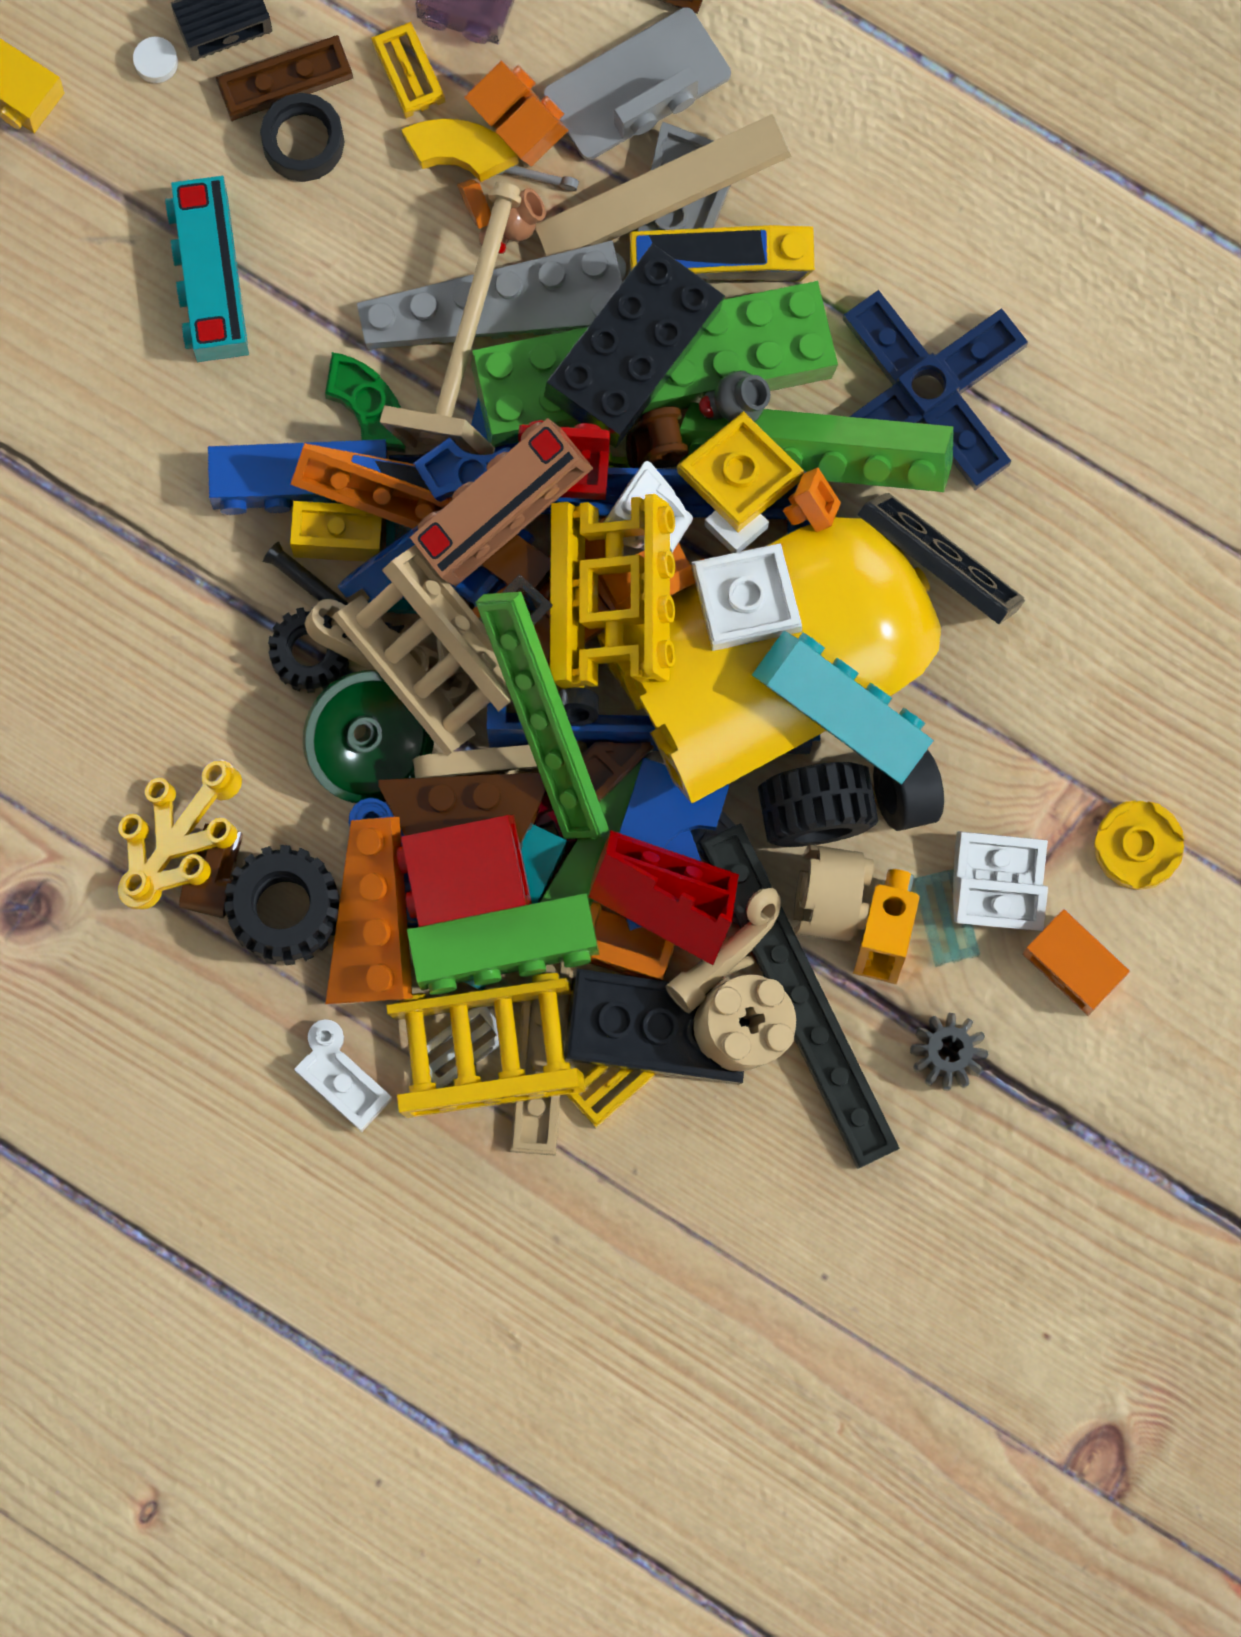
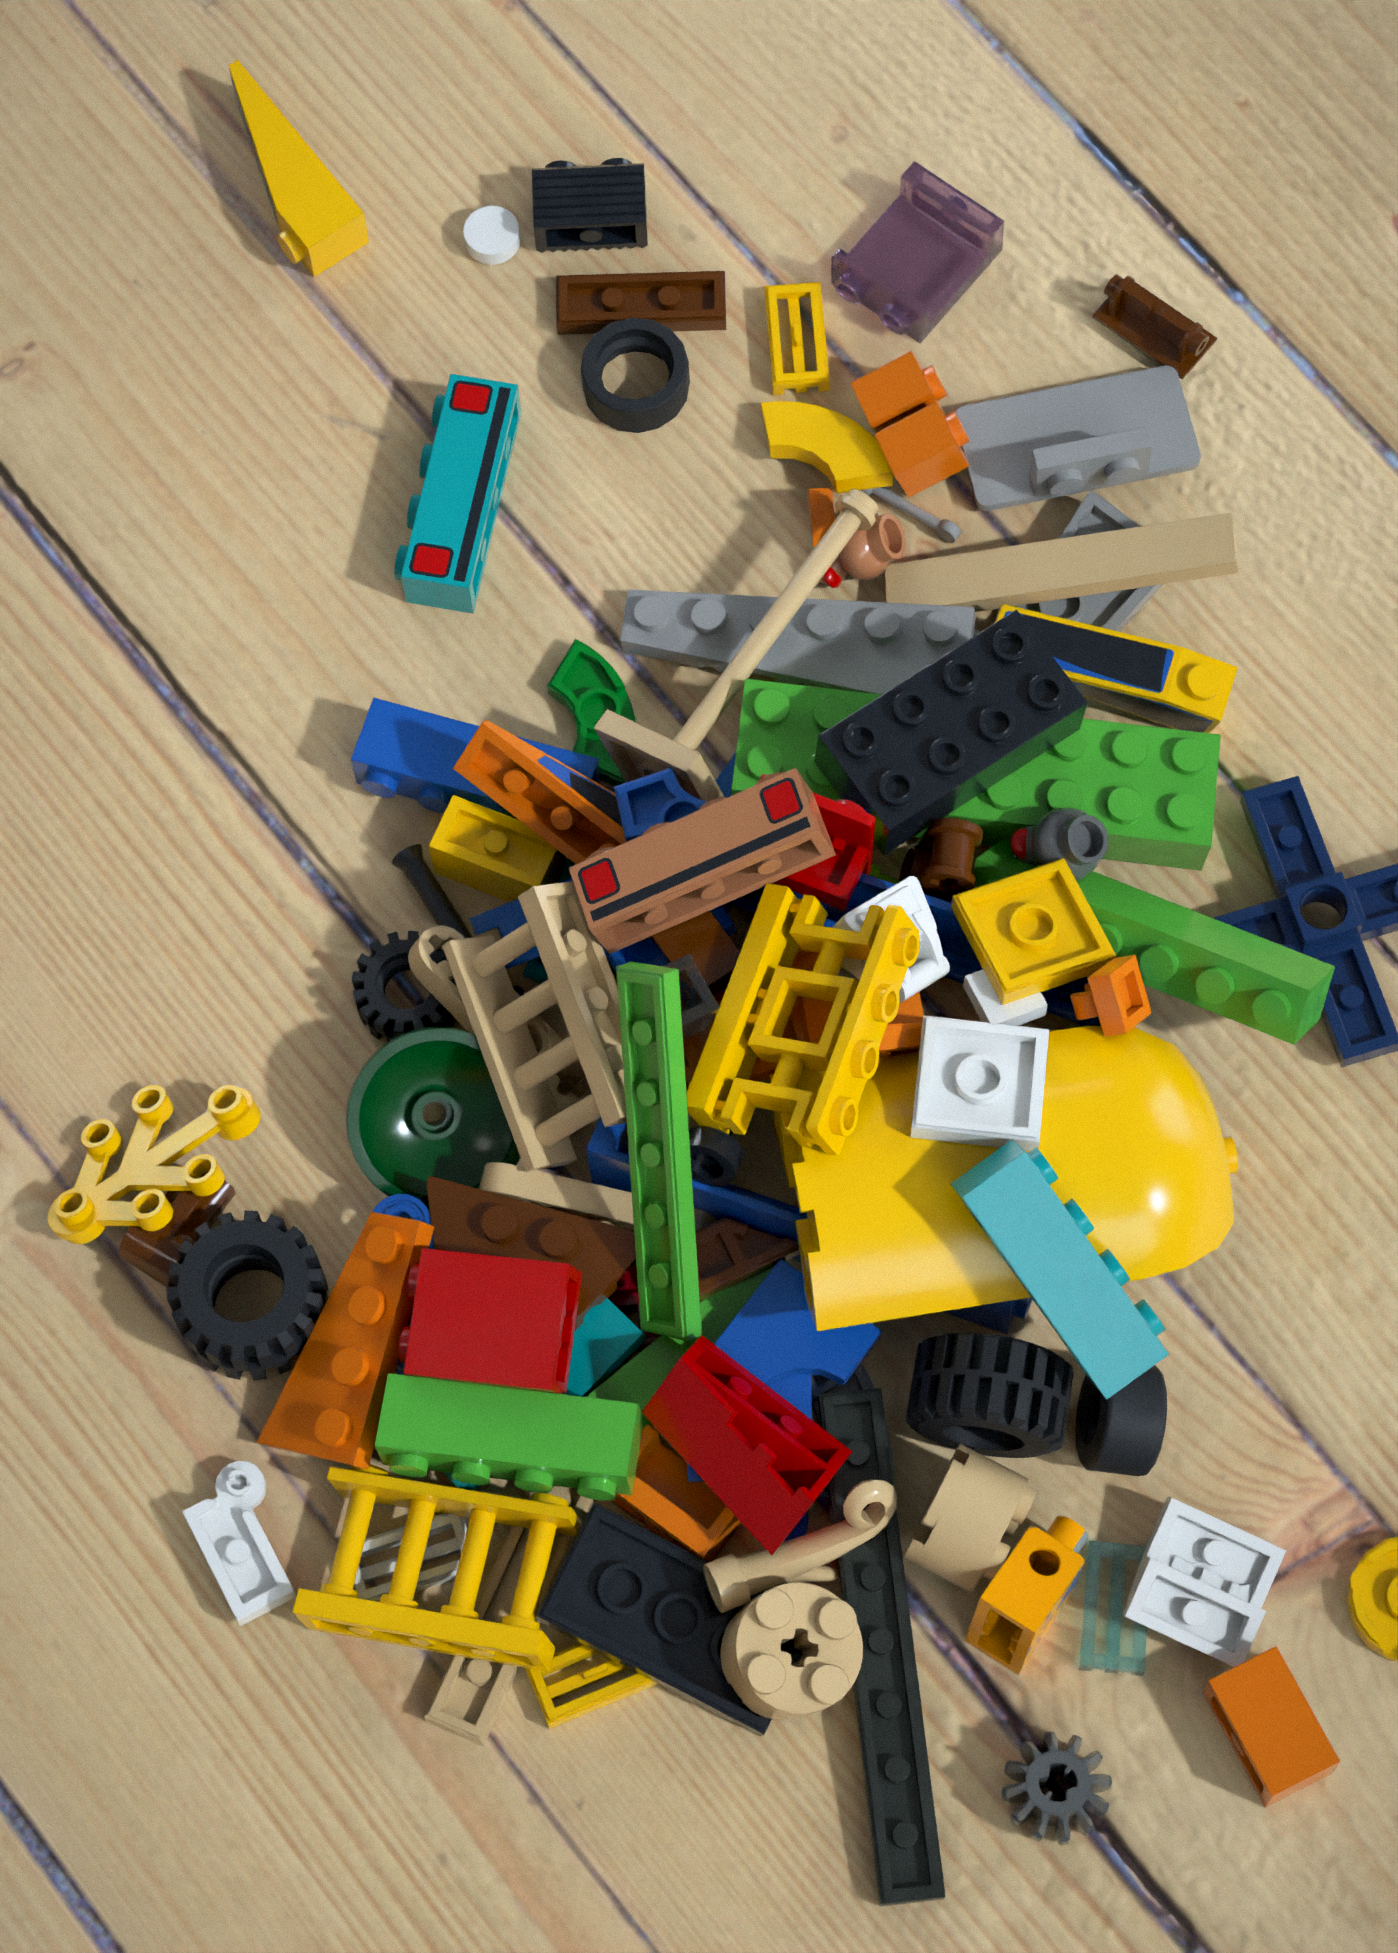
camera: 25 degrees right, 10 degrees down
(942, 557) = (1266, 1133): black tile -> none

